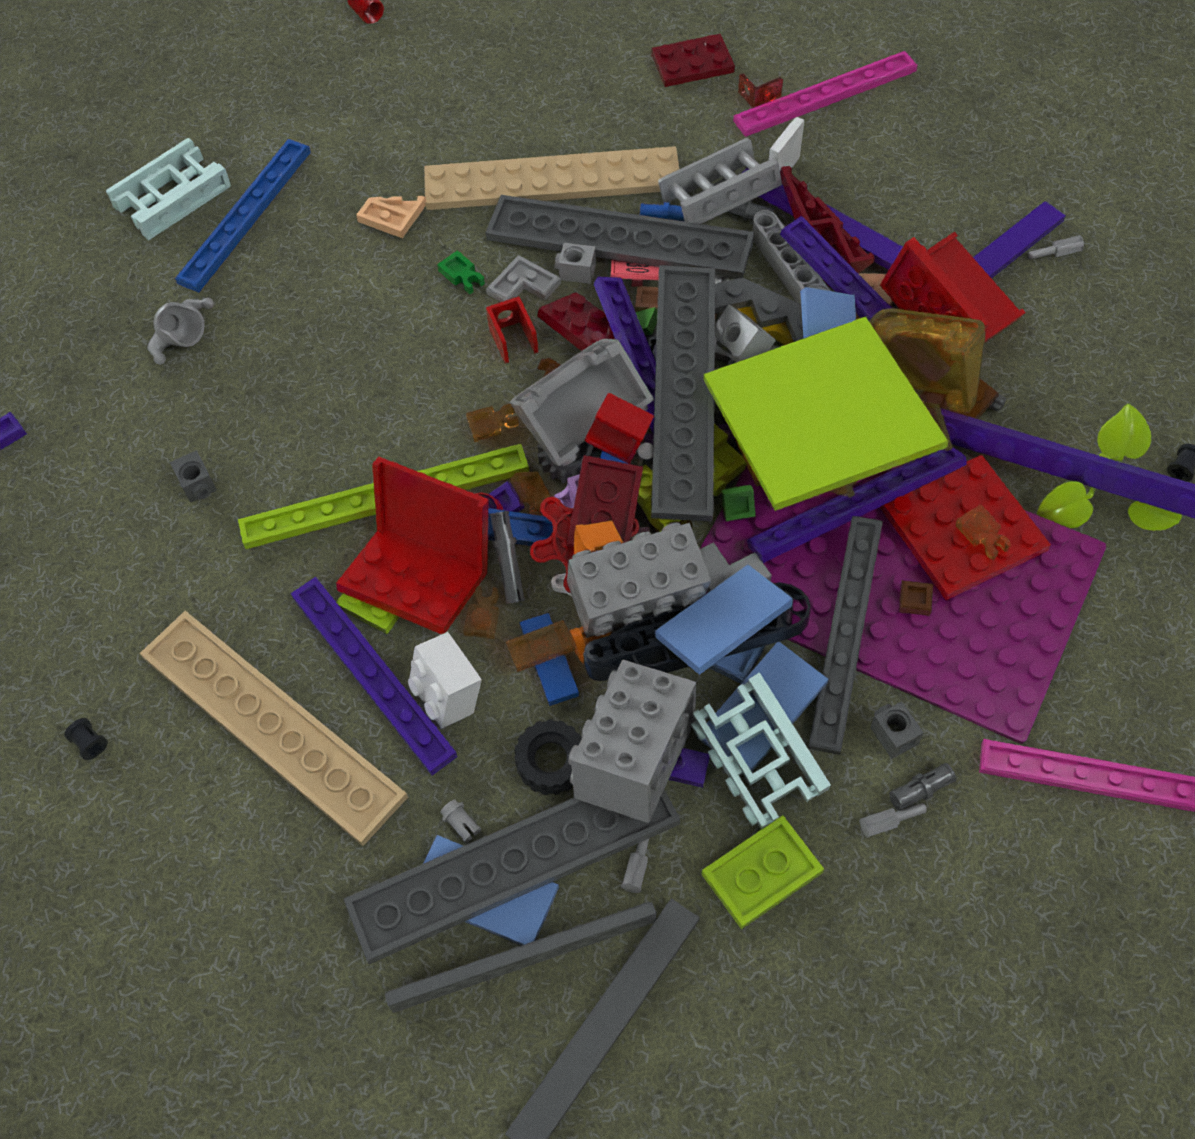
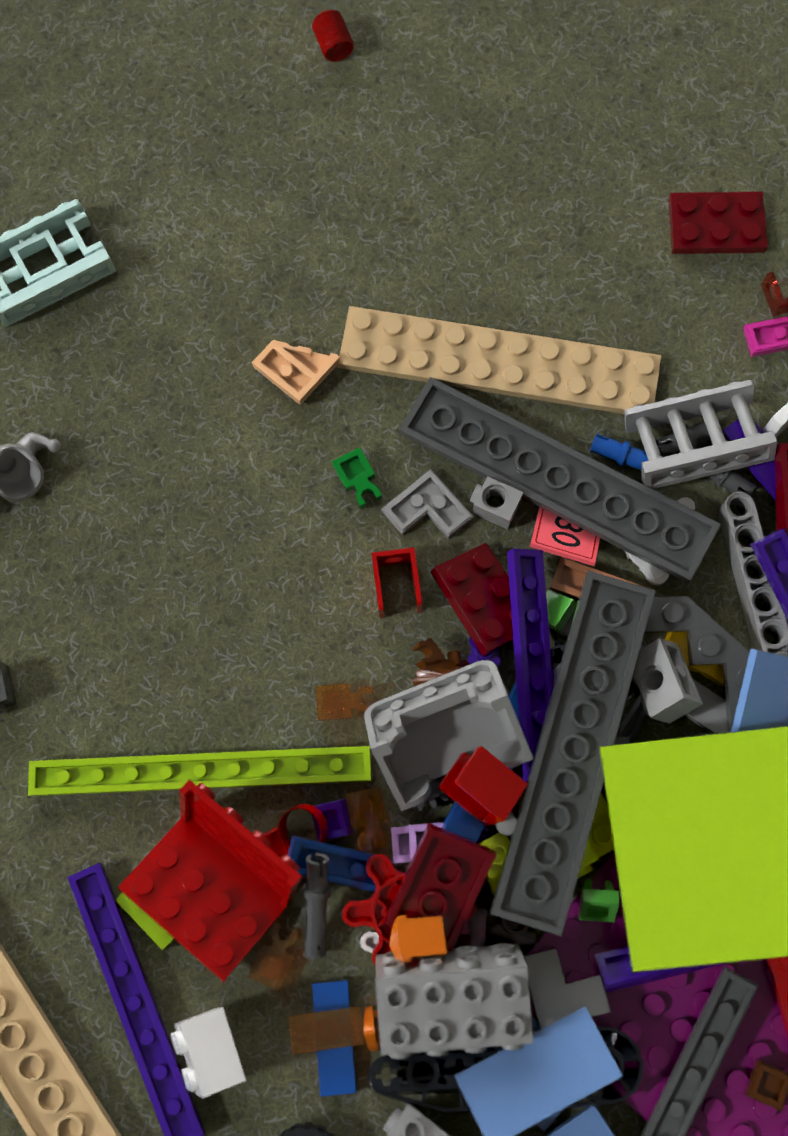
camera: 15 degrees right, 15 degrees up
(242, 216) = (122, 320): blue tile -> none

